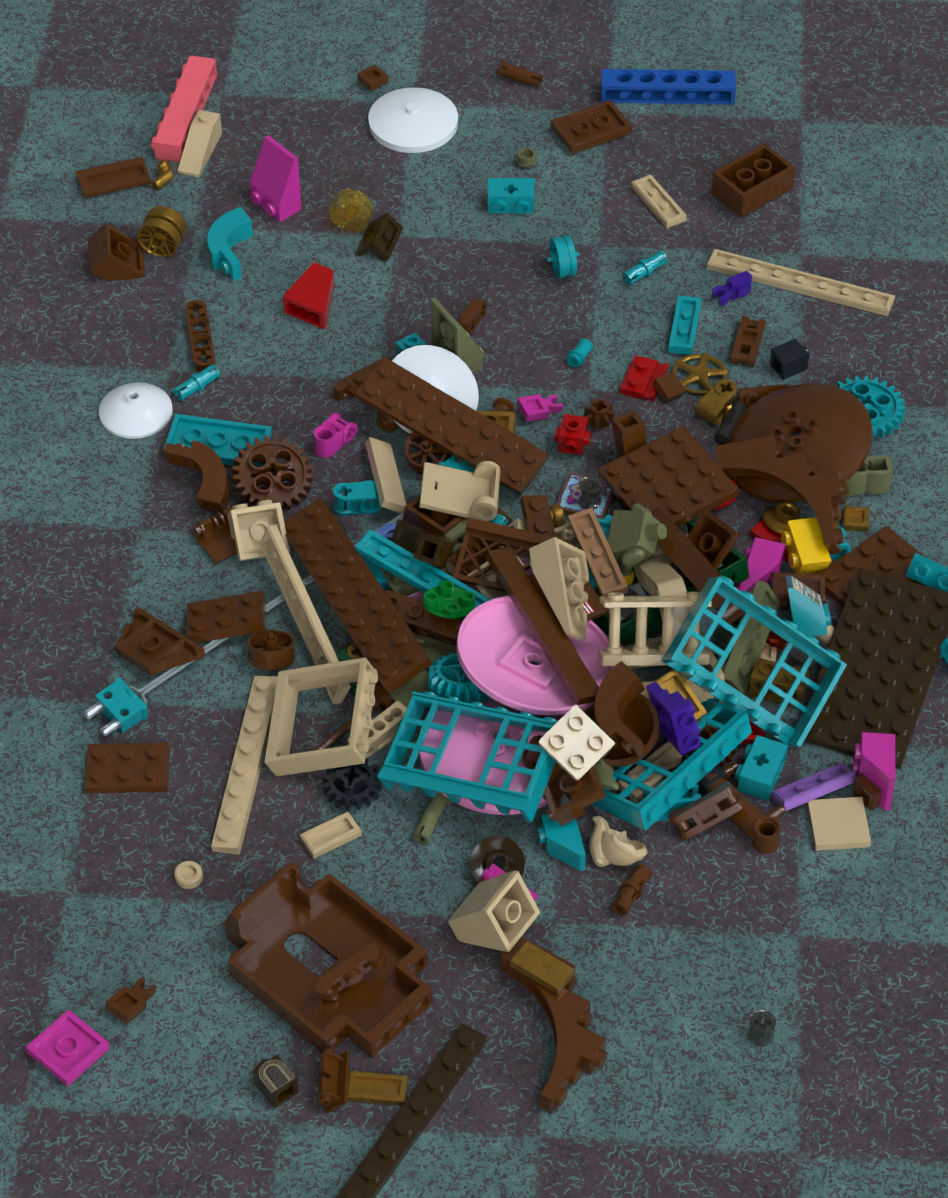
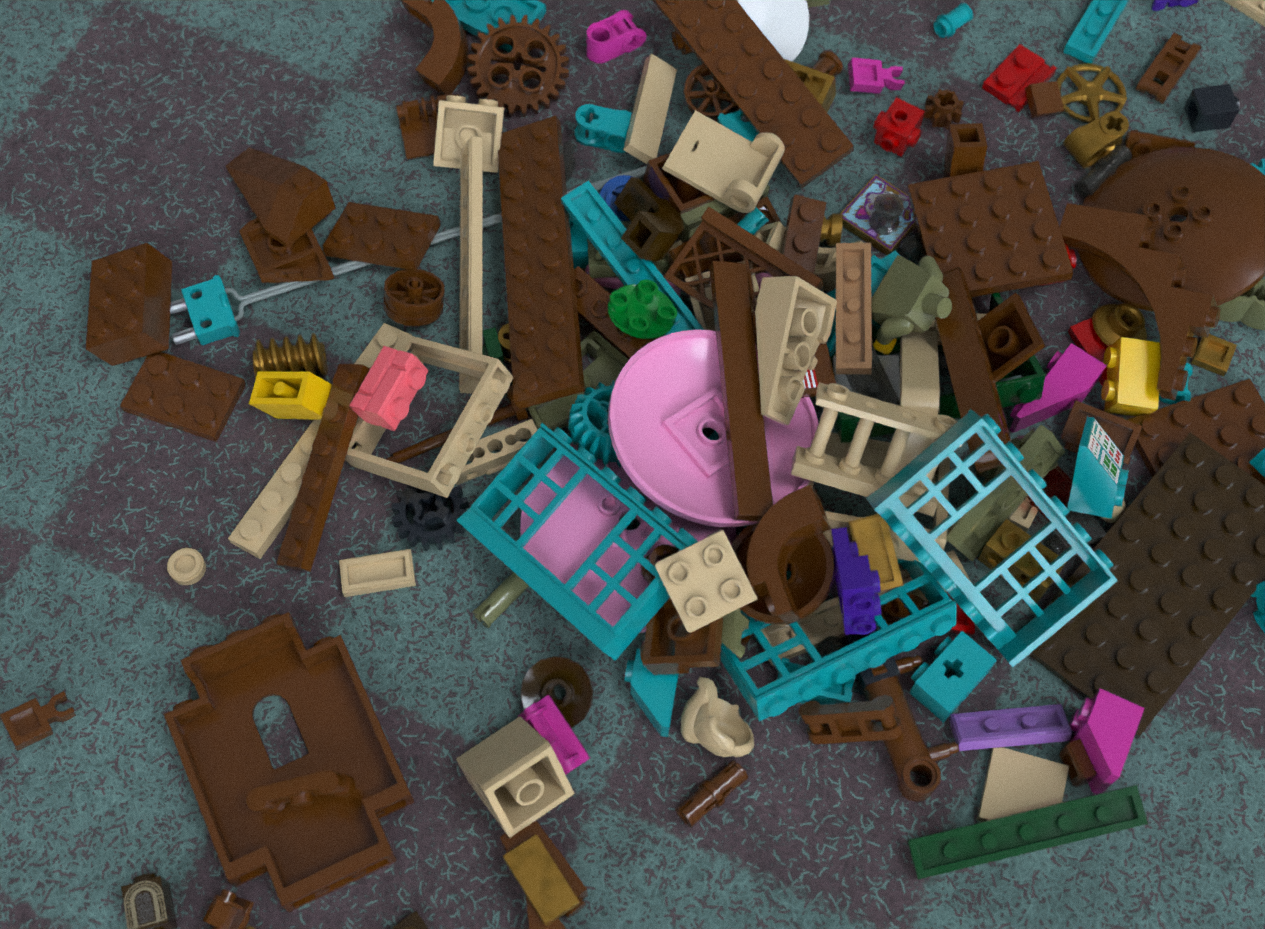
camera: 20 degrees right, 15 degrees up
(61, 716) = (129, 305): none -> reddish brown brick
(139, 609) = (281, 193): none -> reddish brown wedge
(197, 715) = (291, 356): none -> pearl gold piece
(217, 736) = (290, 394): none -> yellow brick
(263, 775) = (322, 470): none -> reddish brown plate
(292, 704) = (389, 388): none -> coral brick
(849, 840) = (1027, 831): none -> dark green plate

